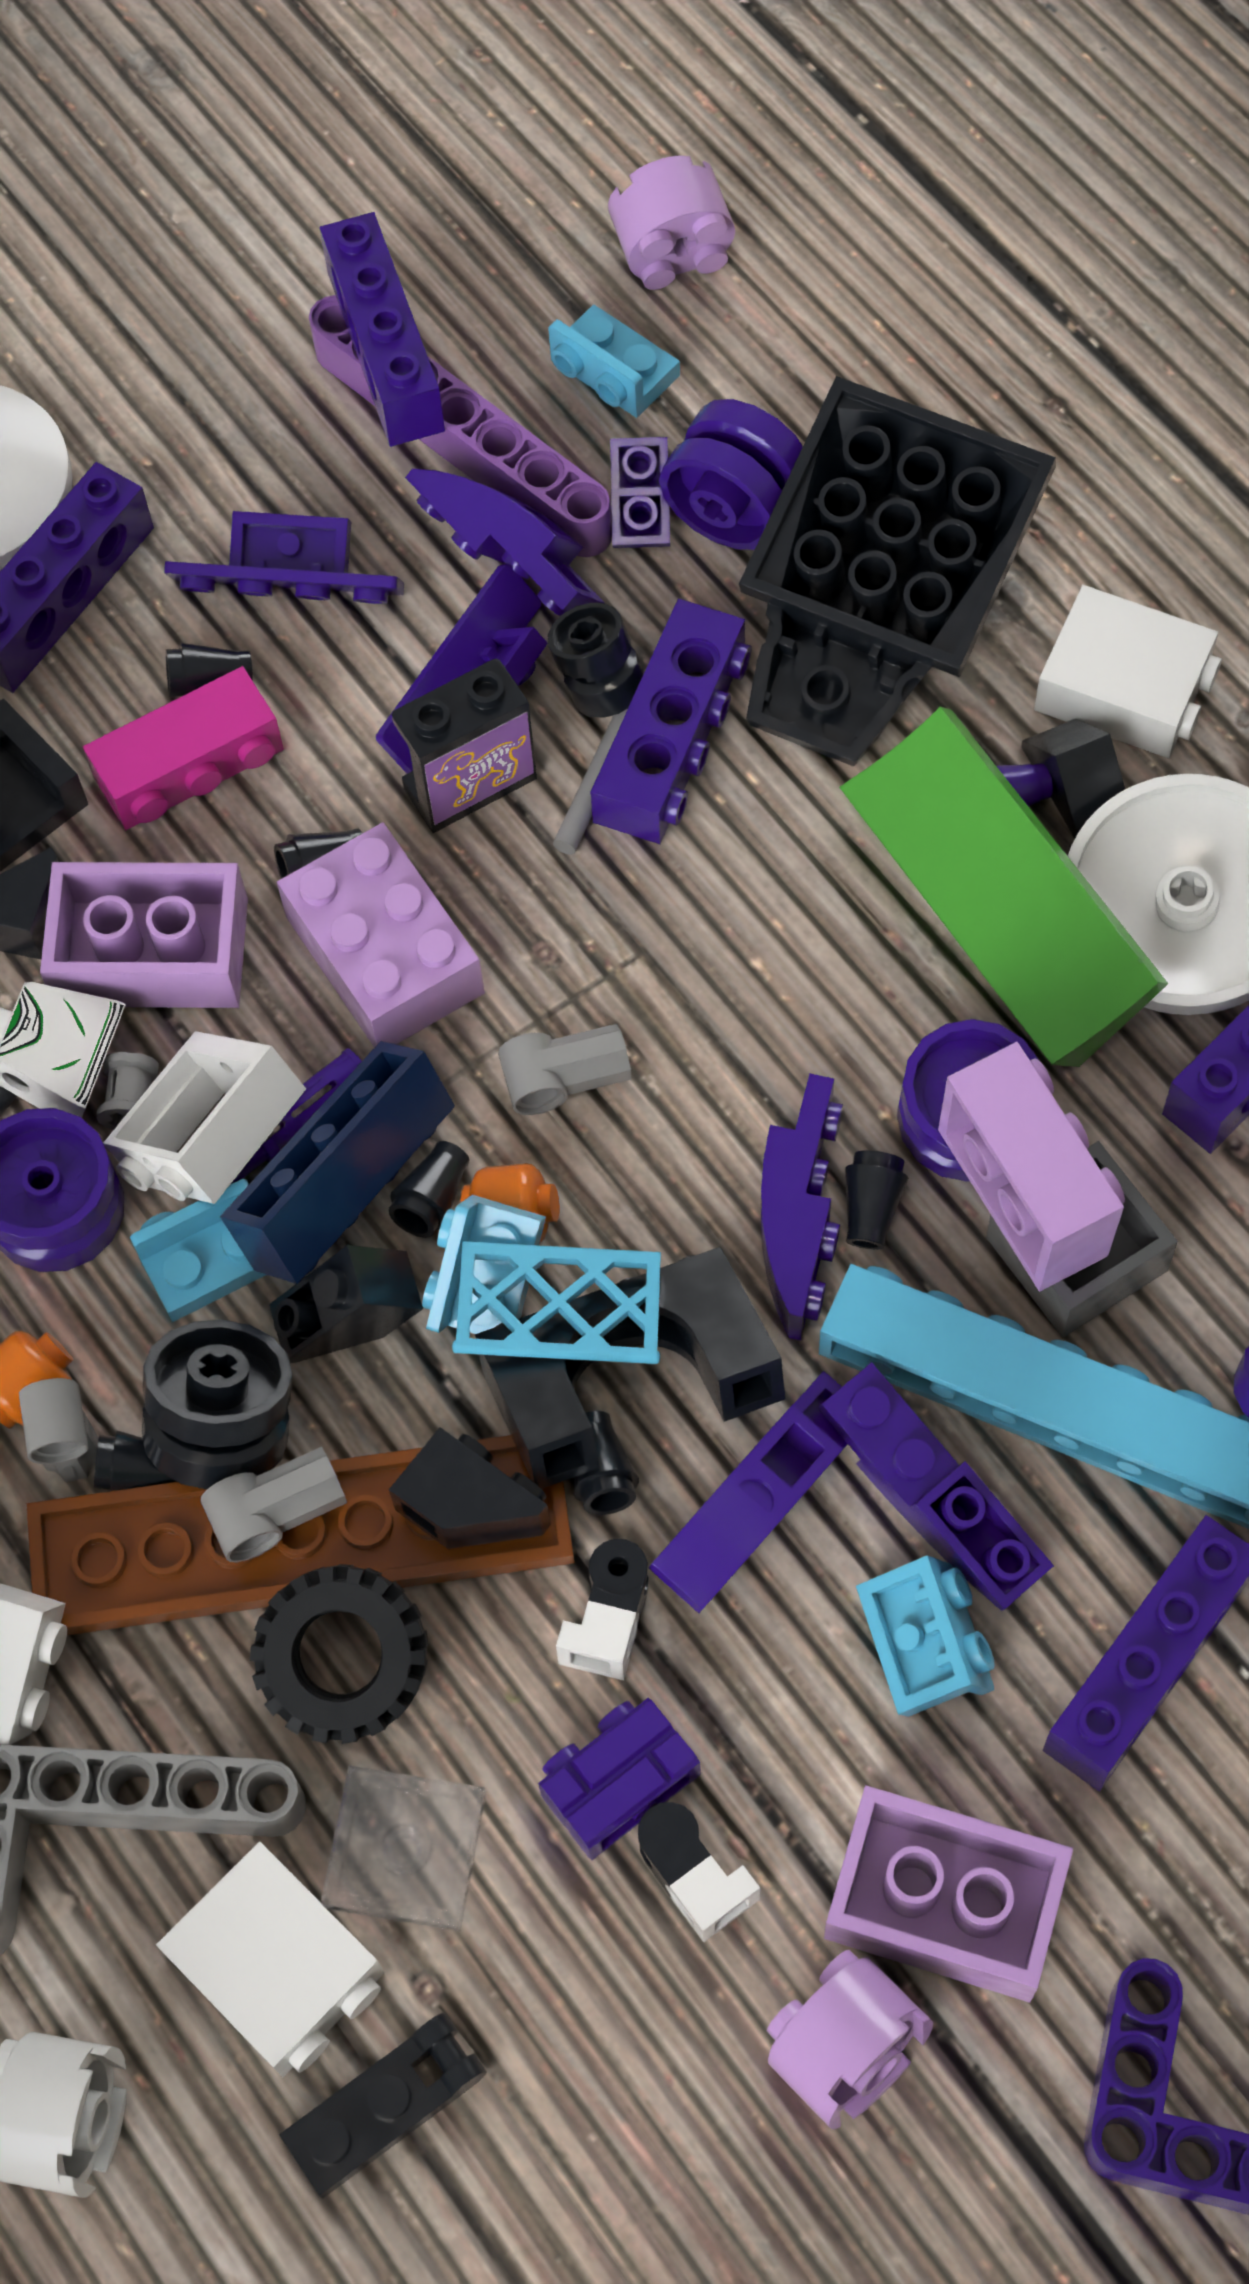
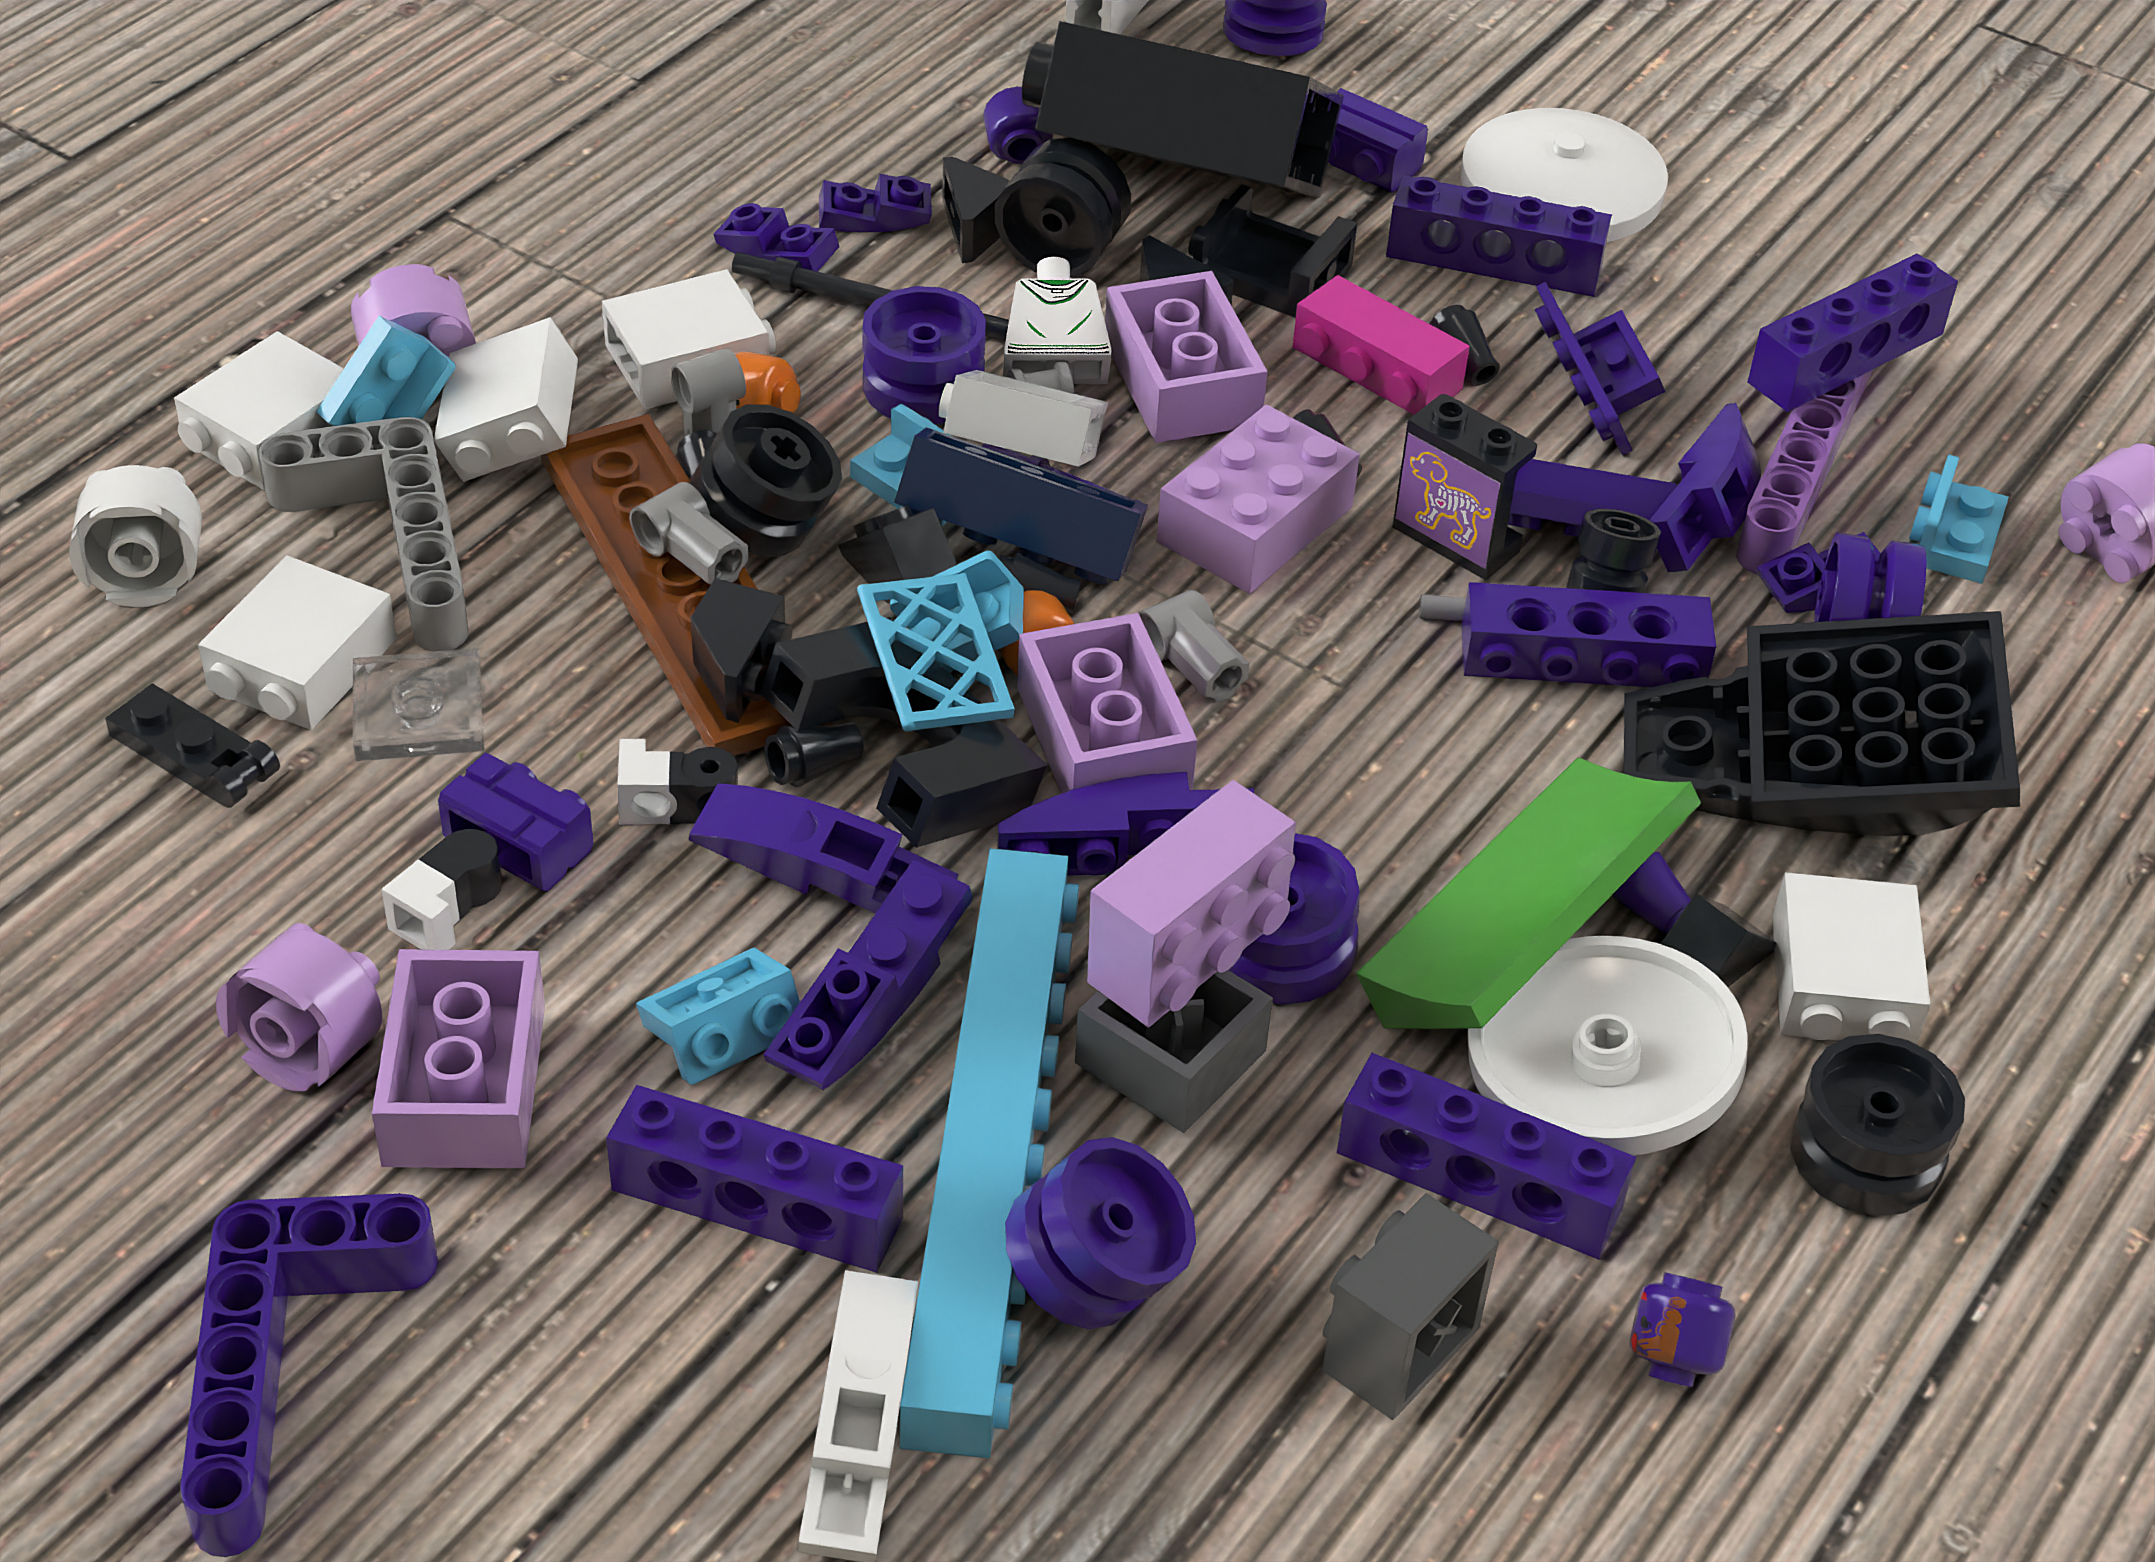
camera: 65 degrees right, 20 degrees down
(292, 1691) = (569, 605): black tyre -> none
(656, 1173) = (1103, 703): none -> lavender brick

